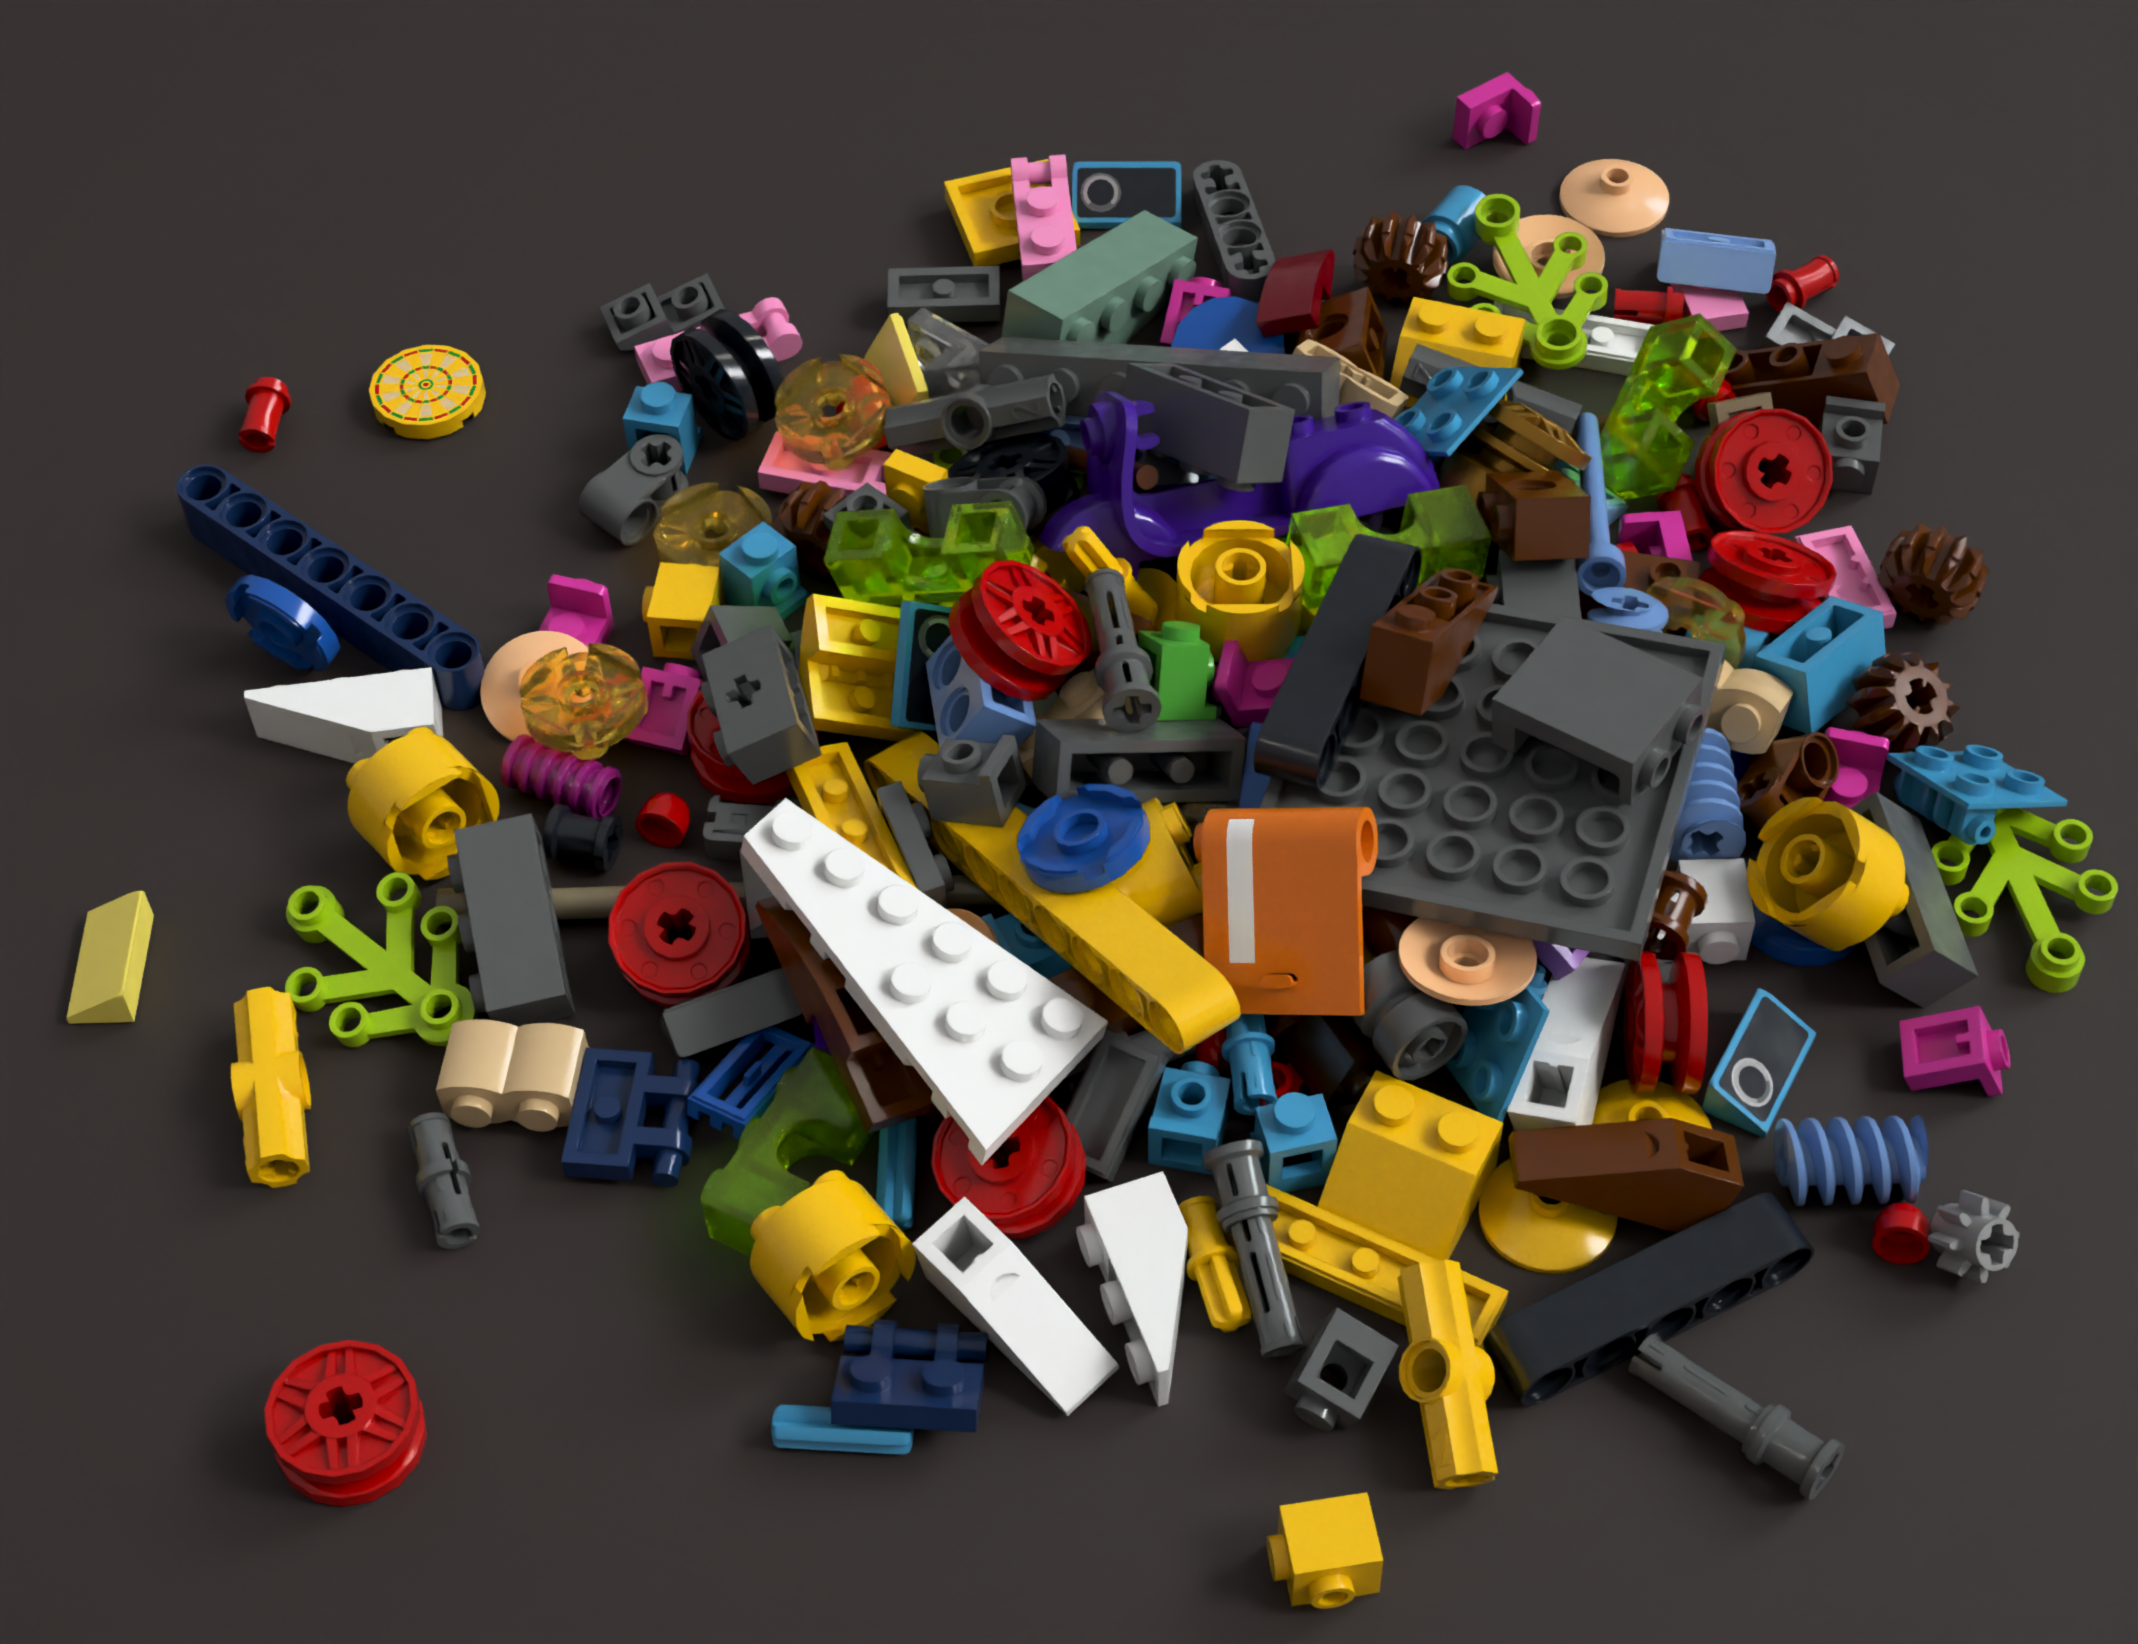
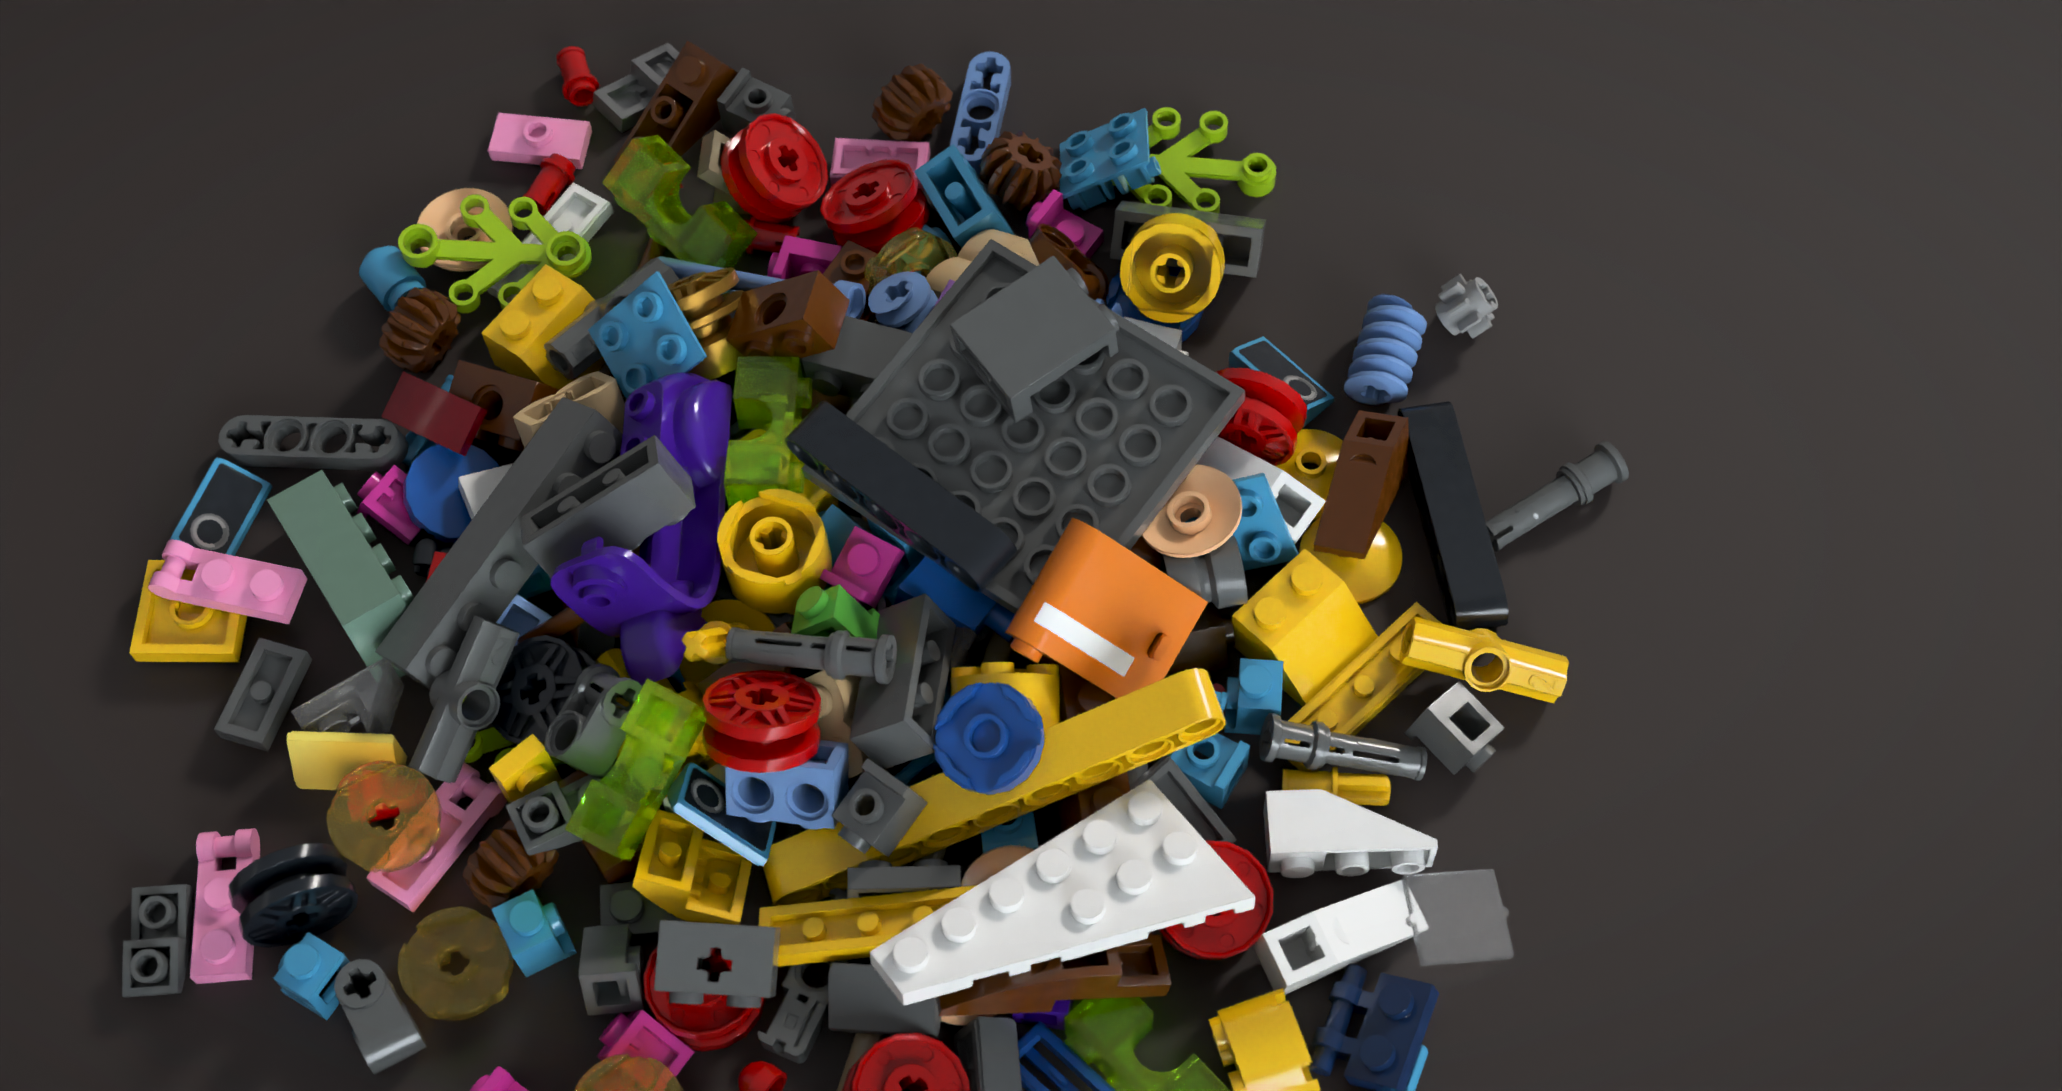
camera: 70 degrees left, 10 degrees up
(679, 605) = (538, 1009): yellow brick -> none
(897, 1172) = (1193, 997): dark azure axle -> none
(1091, 1439) = (1457, 917): none -> clear piece
(1327, 1551) = (1594, 785): yellow brick -> none
(1424, 640) = (910, 426): reddish brown slope -> none
(1494, 108) = (278, 200): dark pink bracket -> none
(1614, 197) = (412, 179): light nougat dish -> none
(1716, 261) = (534, 118): light blue slope -> none
(1901, 1234) = (1442, 347): red hinge -> none
(1953, 1050) = (1313, 260): dark pink bracket -> none
(1998, 640) = (975, 95): none -> medium blue beam

